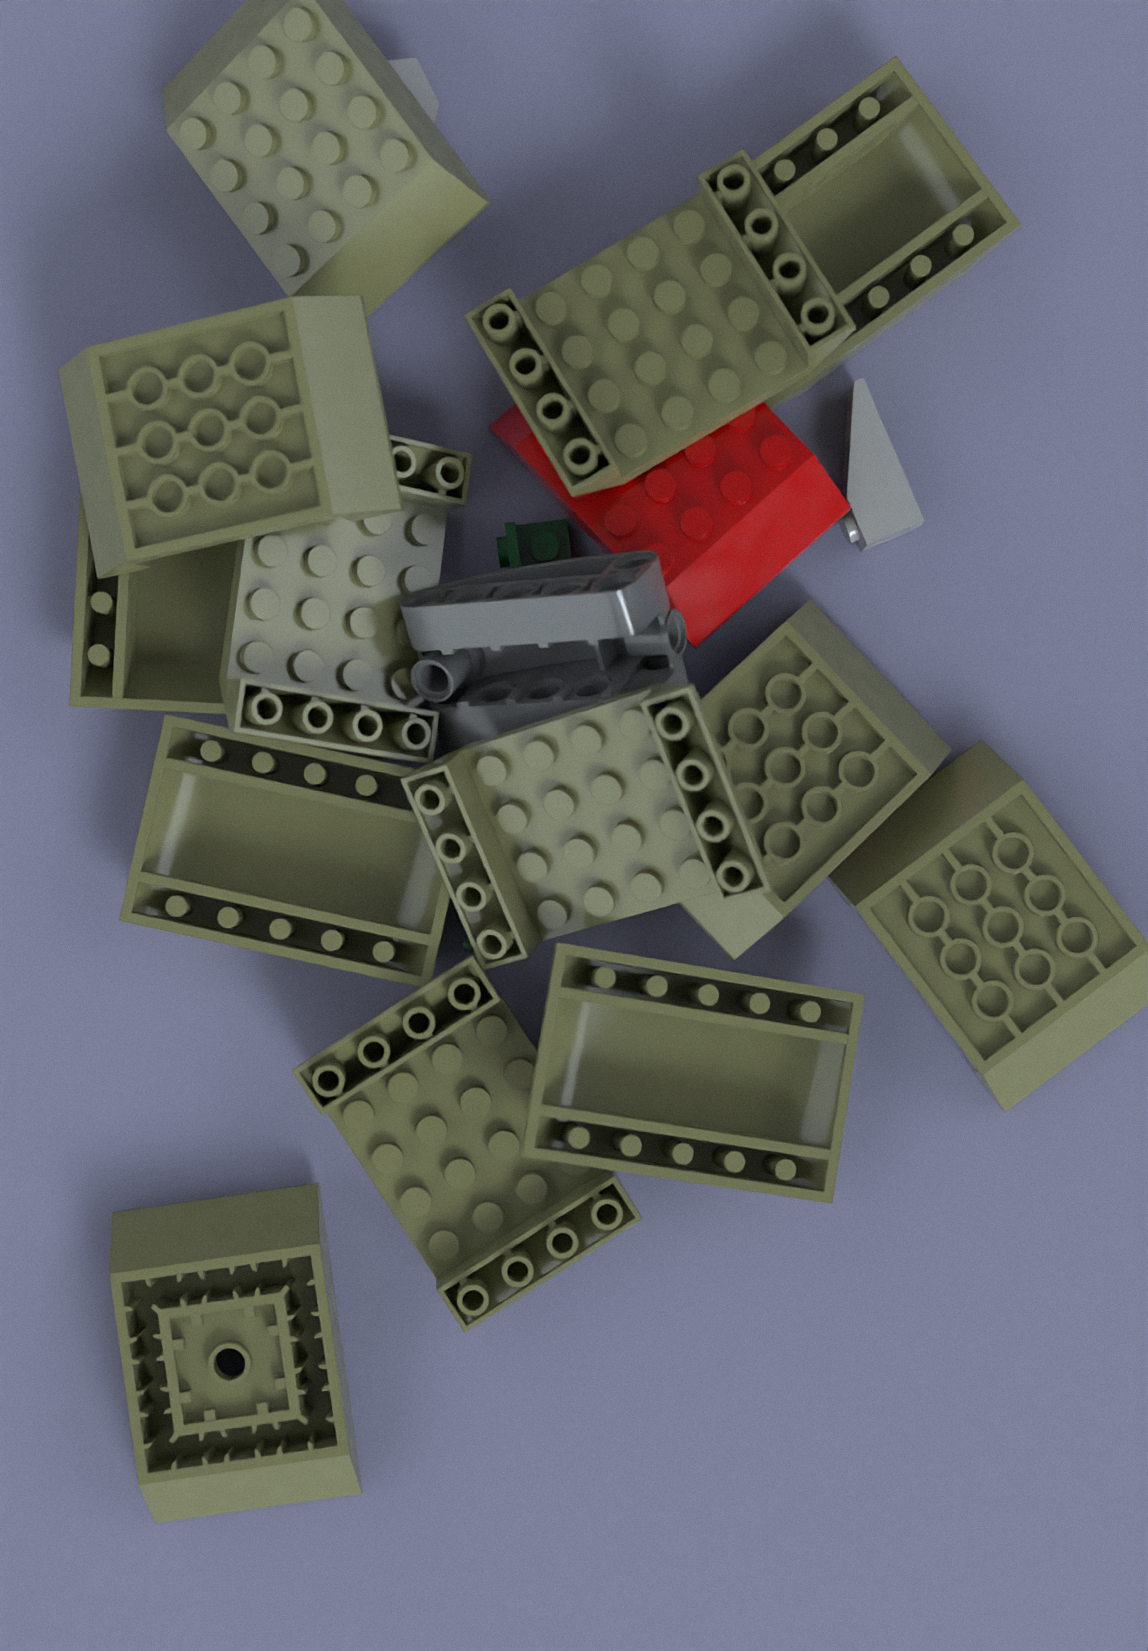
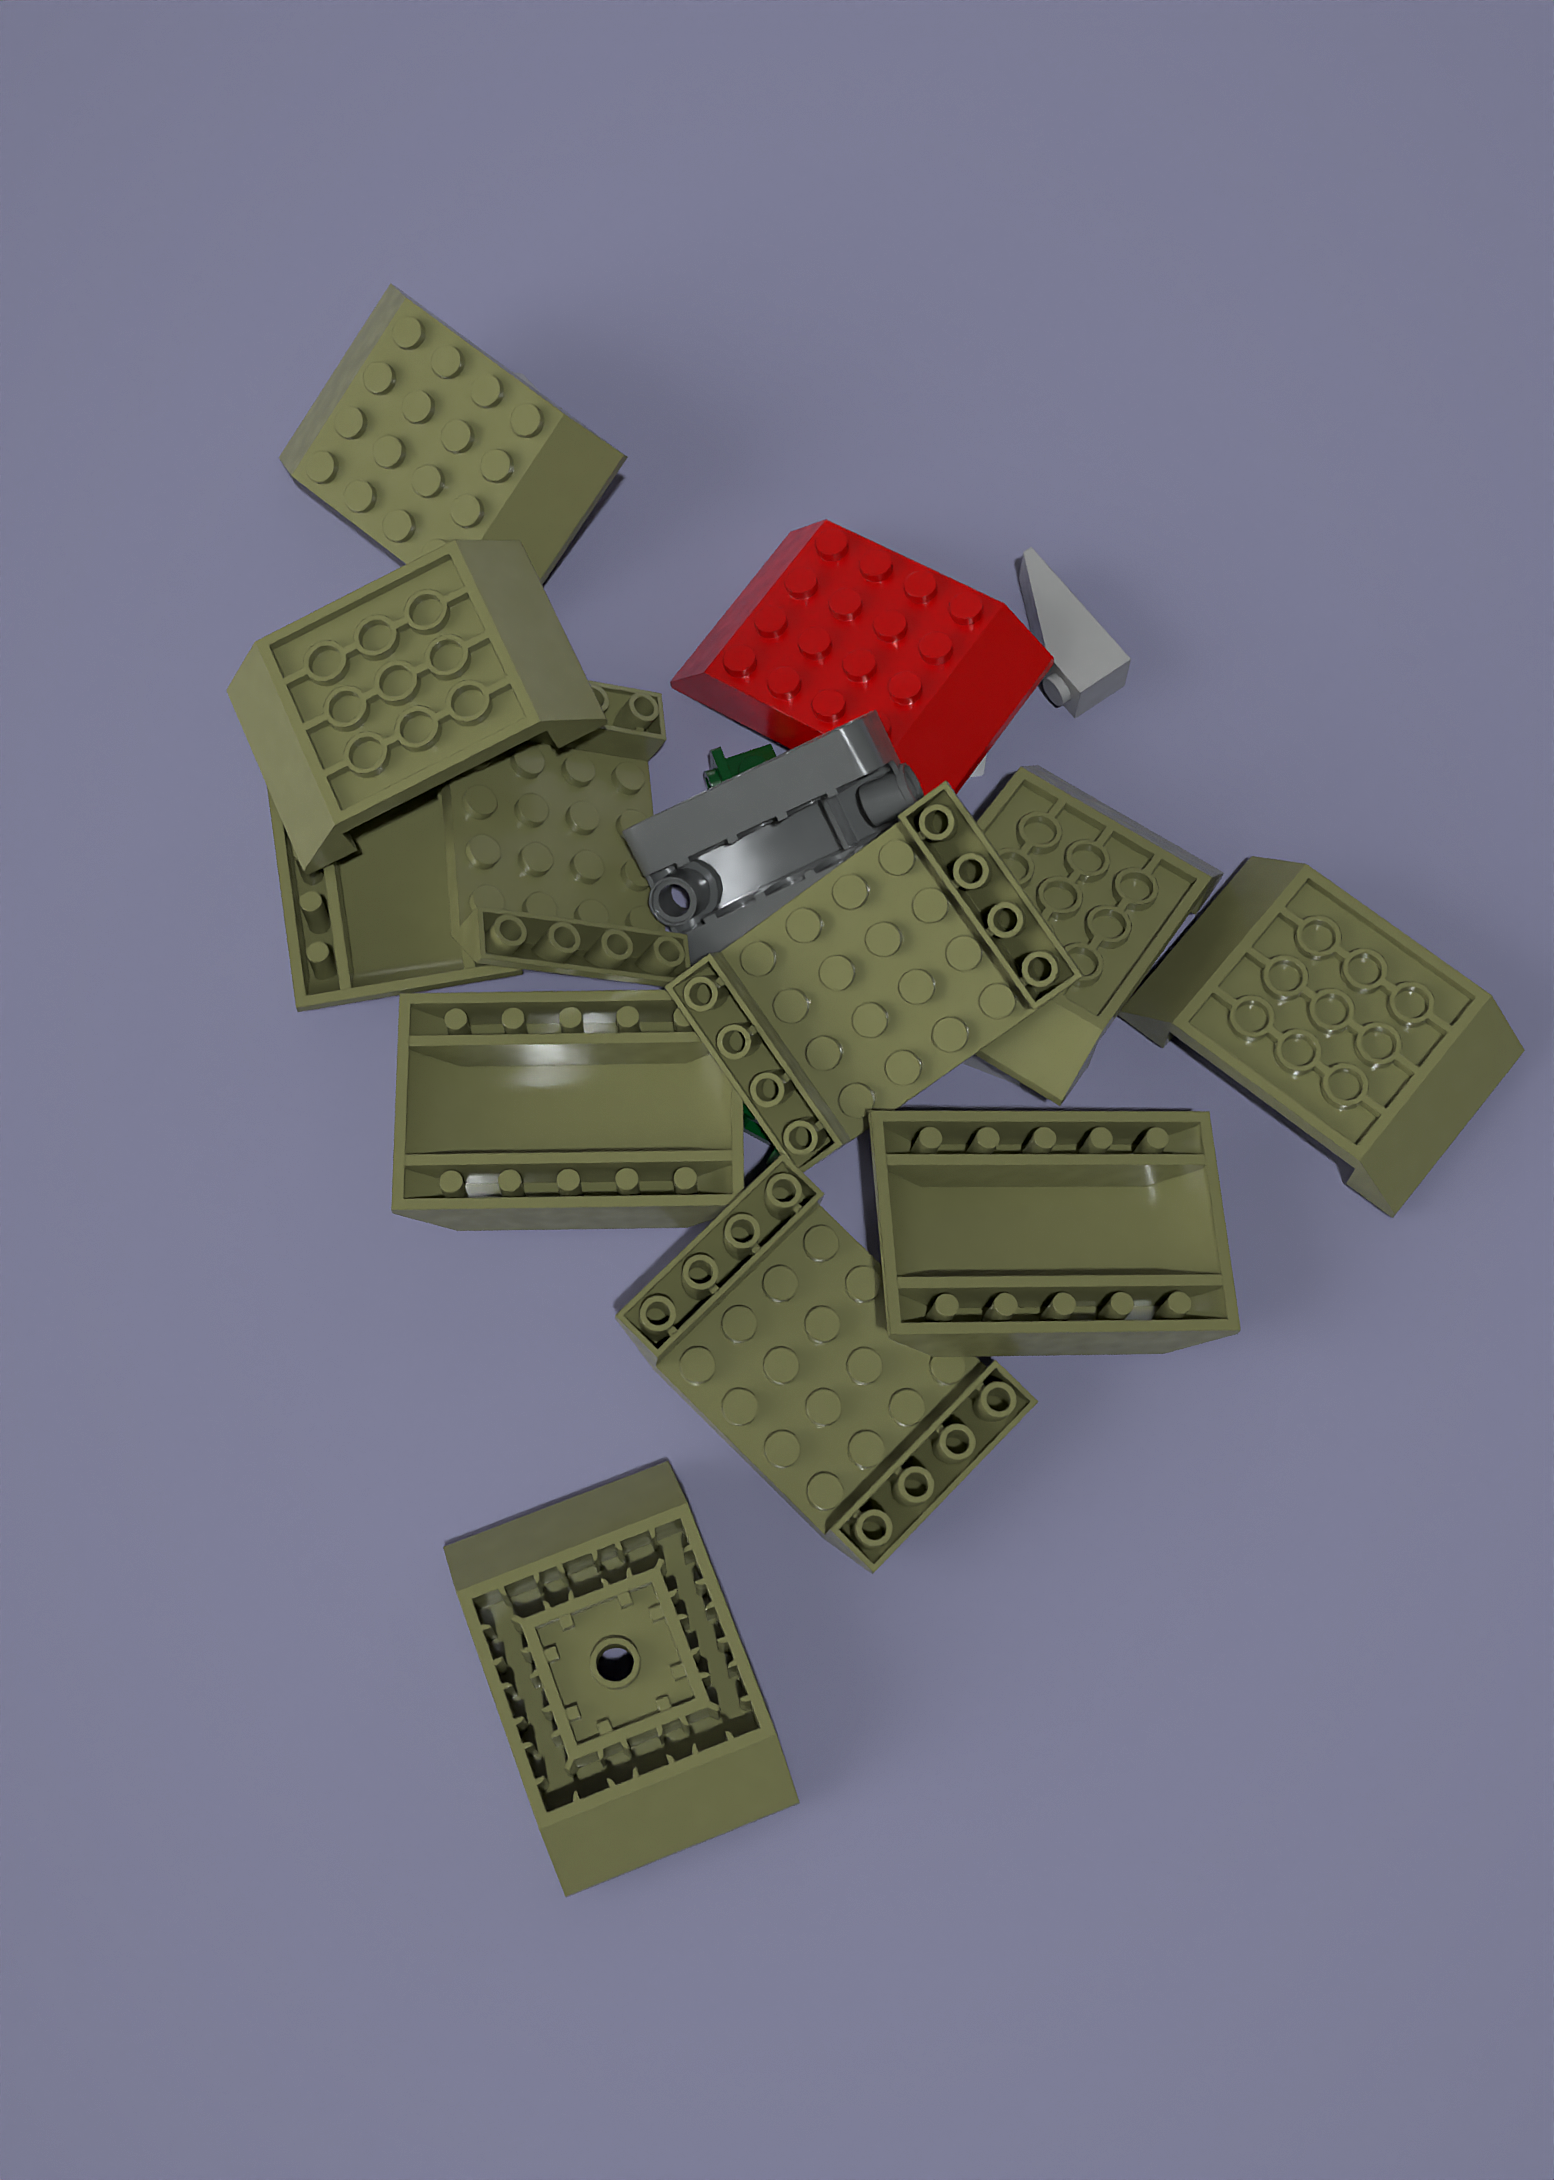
camera: 10 degrees left, 20 degrees down
(665, 332) = (833, 523): olive slope -> none
(883, 205) = (968, 432): olive slope -> none

